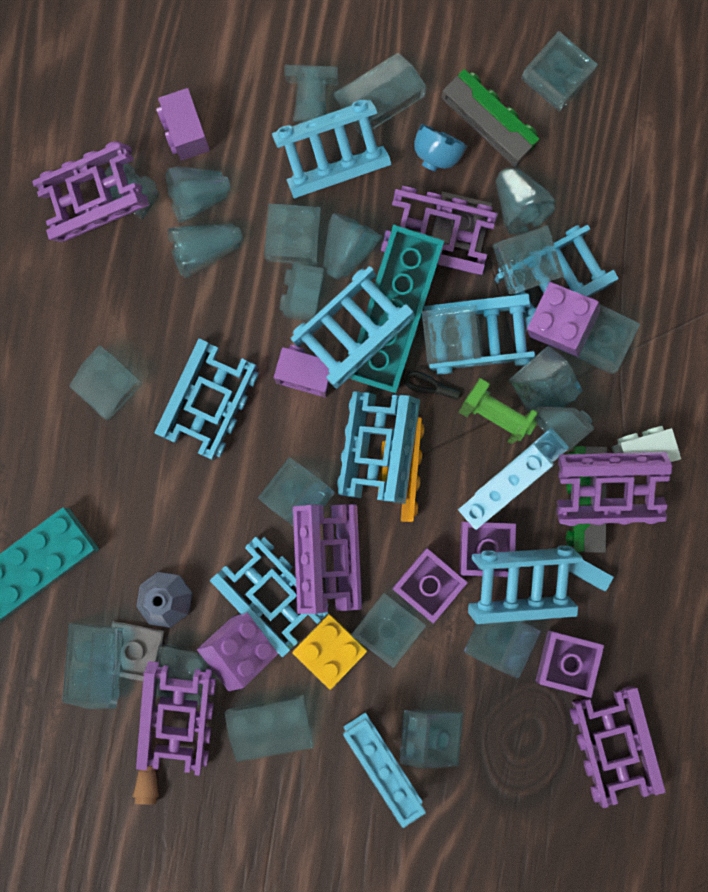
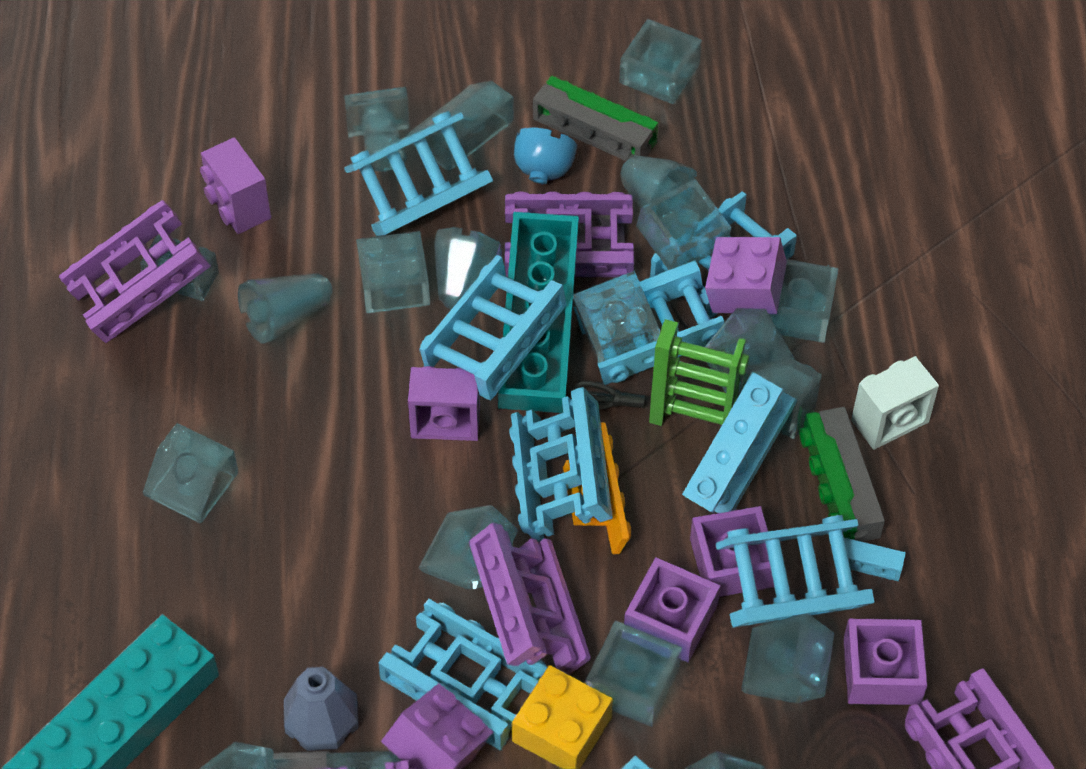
camera: 15 degrees left, 30 degrees down
(187, 391) = (301, 462): medium azure fence -> none
(194, 190) = (261, 248): clear light blue cone -> none
(303, 292) = (417, 318): clear light blue brick -> none
(612, 469) = (862, 407): medium lavender fence -> none

